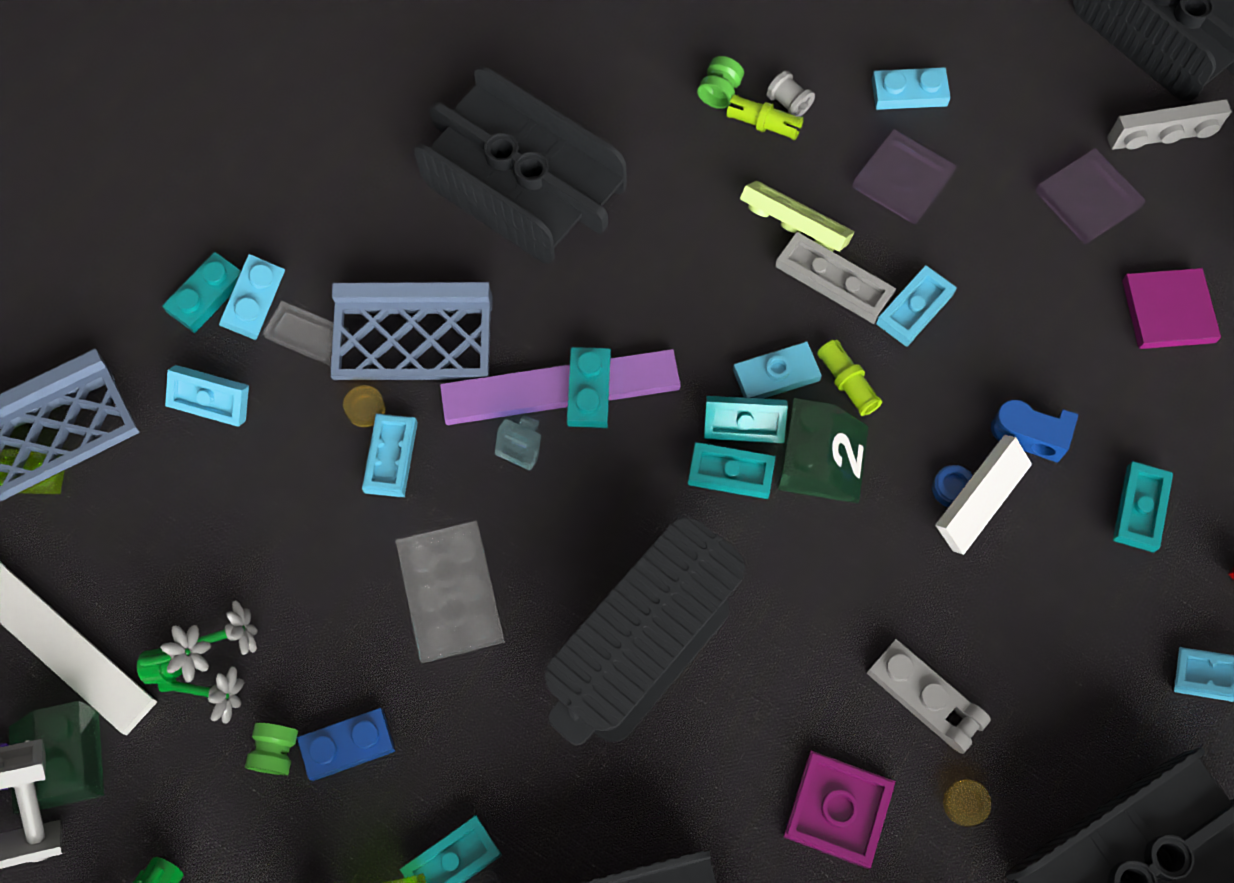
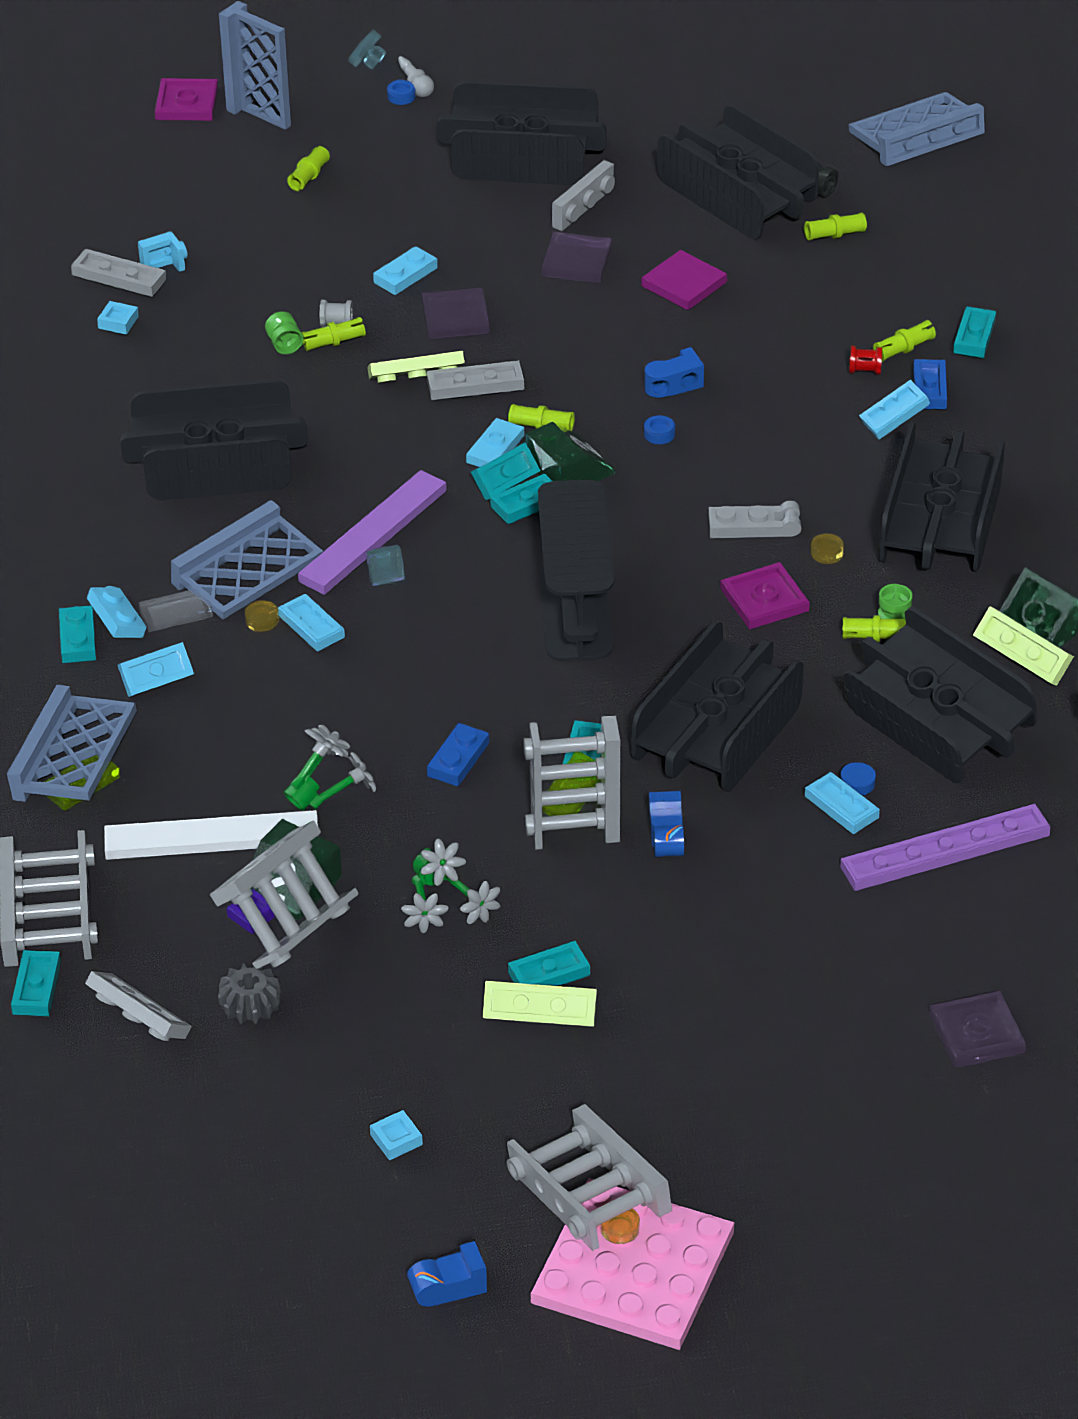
camera: 45 degrees left, 25 degrees down
(271, 748) = (415, 775): bright green wheel -> none
(449, 592) = (431, 652): clear plate -> none
(589, 387) = (394, 513): teal plate -> none
(916, 305) = (539, 363): medium azure plate -> none
(983, 494) = (680, 418): white tile -> none
(1143, 507) = (771, 370): teal plate -> none

